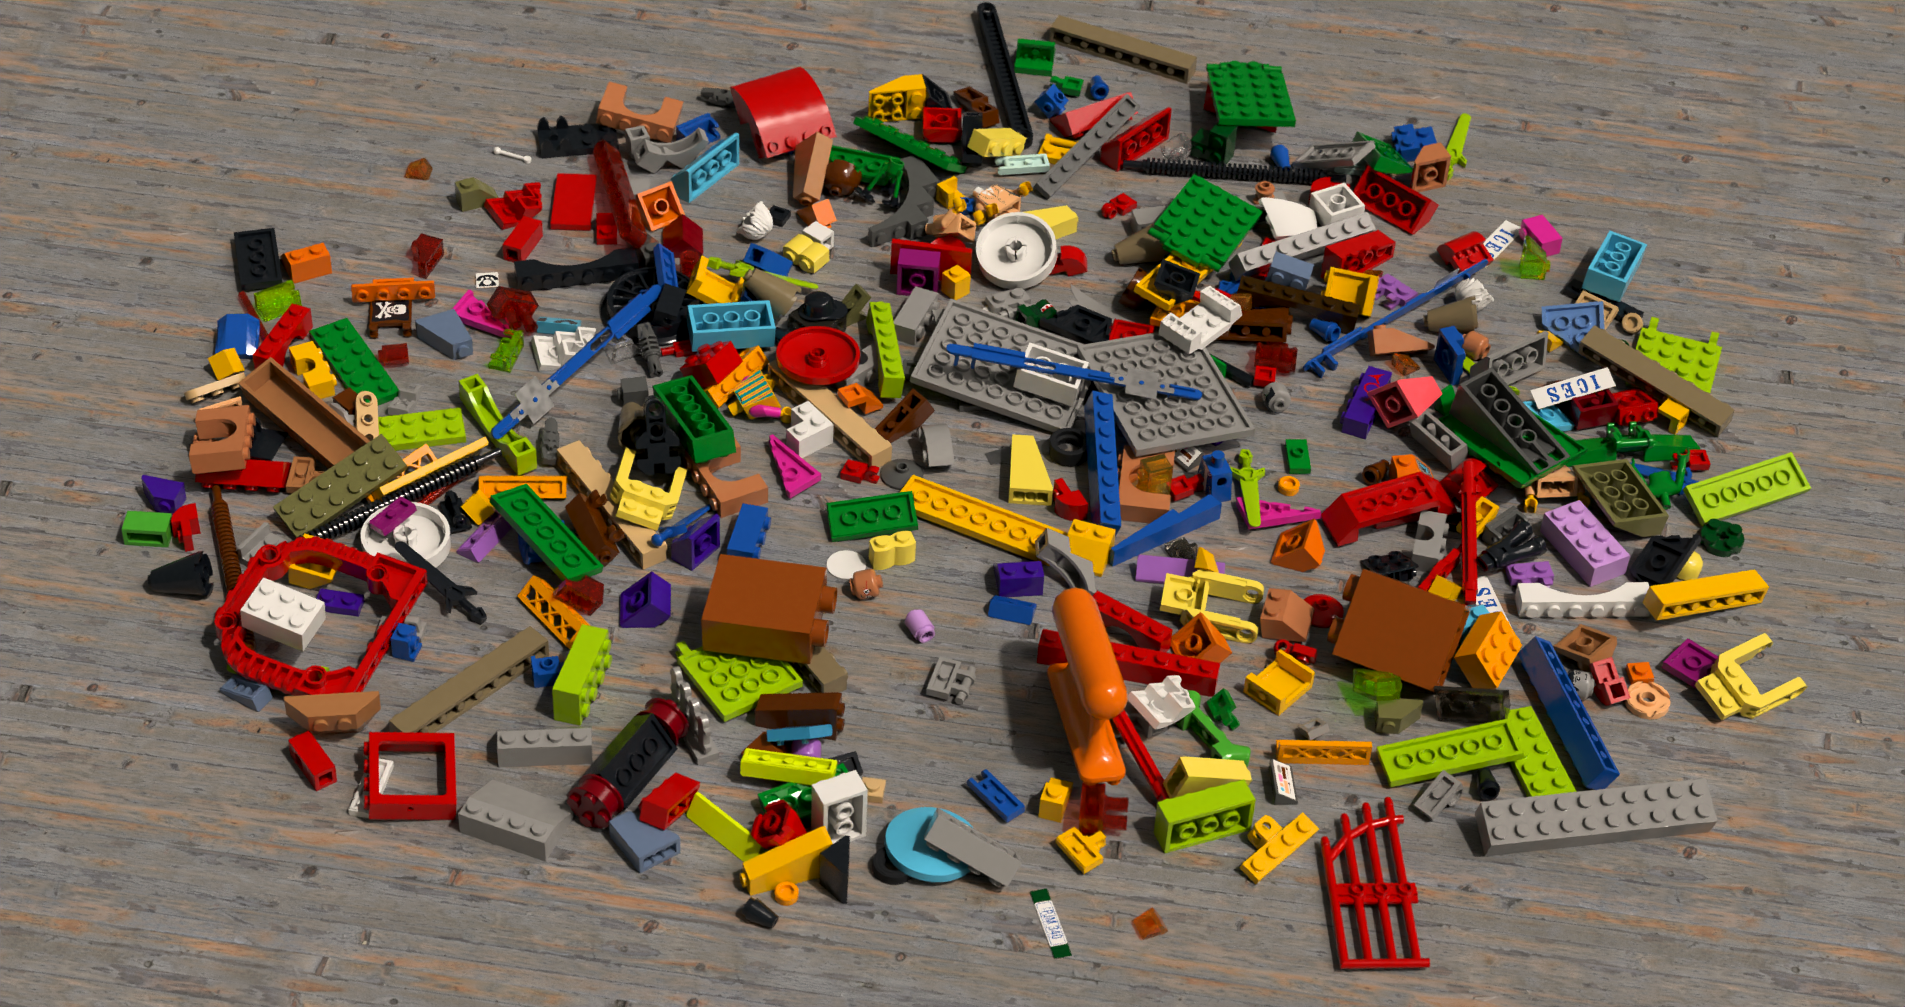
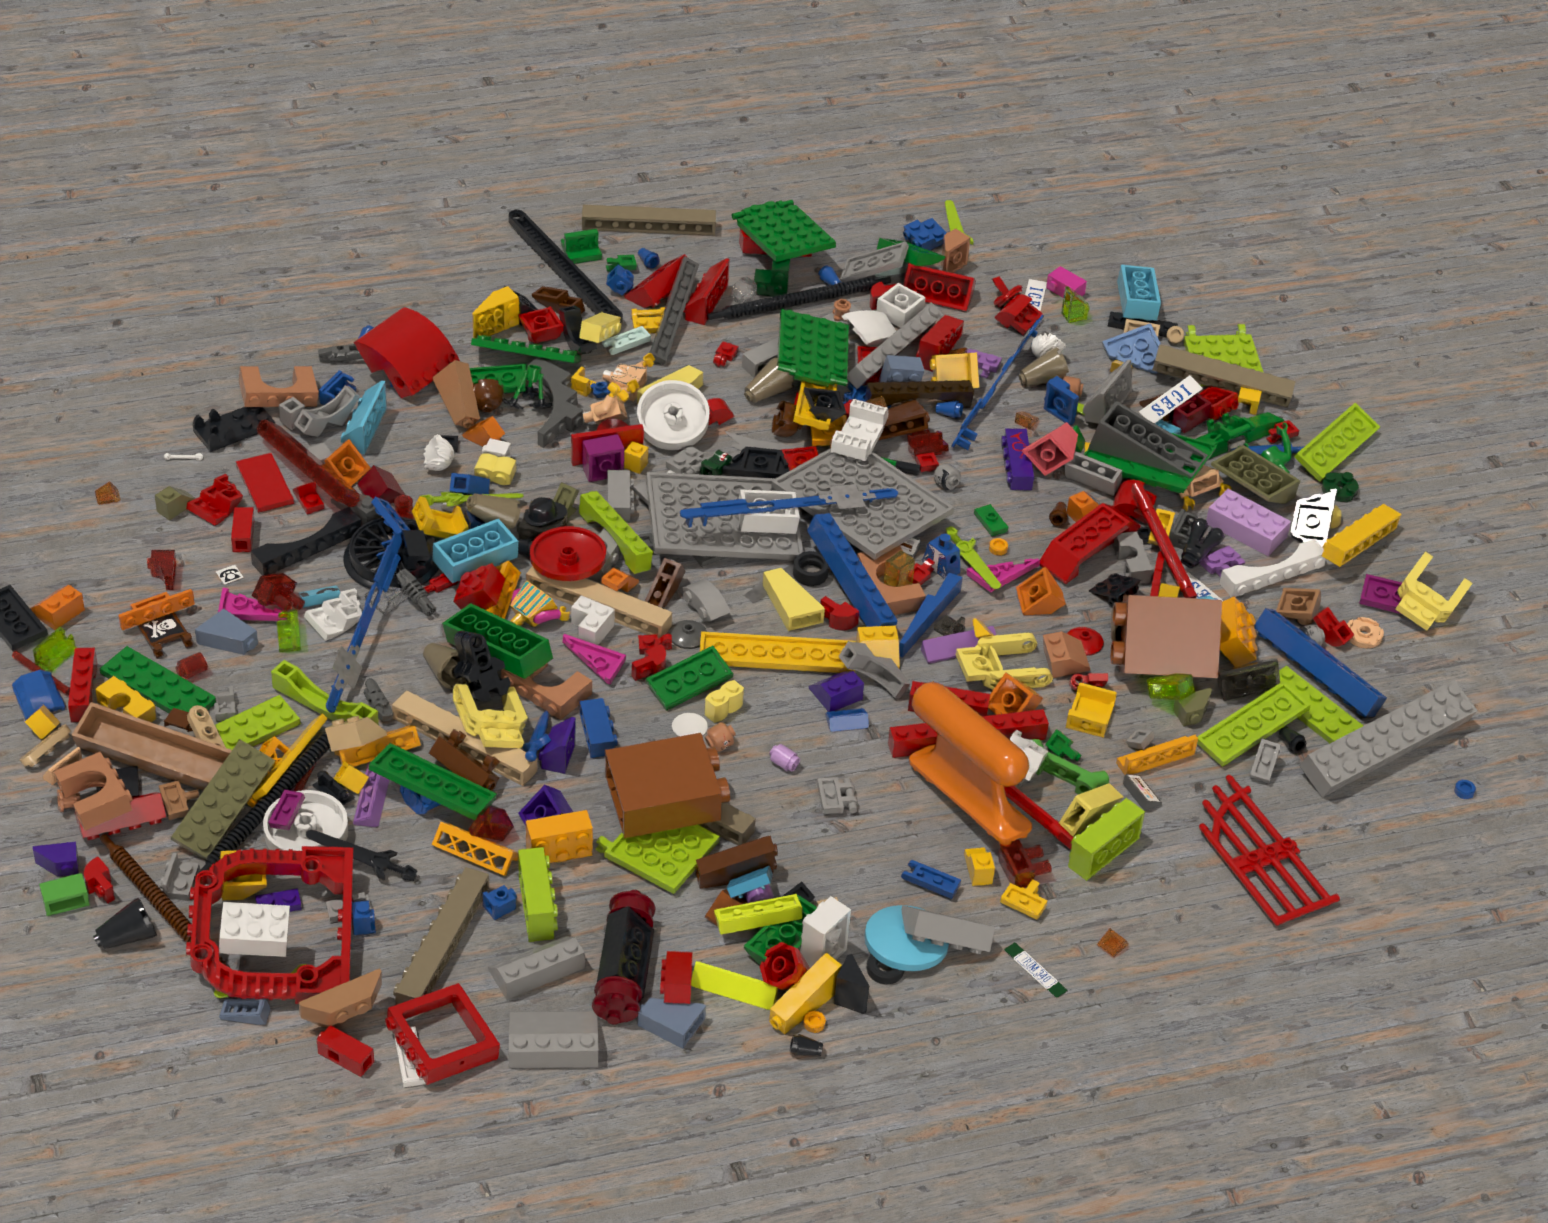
camera: 25 degrees left, 0 degrees up
(499, 462) = (353, 733): none -> tan slope
(633, 390) = (423, 633): dark grey brick -> none
(639, 628) = (562, 836): none -> light orange brick
(698, 737) = (666, 917): light grey fence -> none
(846, 489) = (651, 664): none -> red brick
(1275, 844) = (1168, 843): yellow plate -> none
(1391, 341) = (1010, 402): nougat slope -> none
(1466, 225) = (1006, 294): none -> red piece
(1639, 672) = (1346, 612): orange plate -> none
(1655, 901) = (1464, 789): none -> blue tile

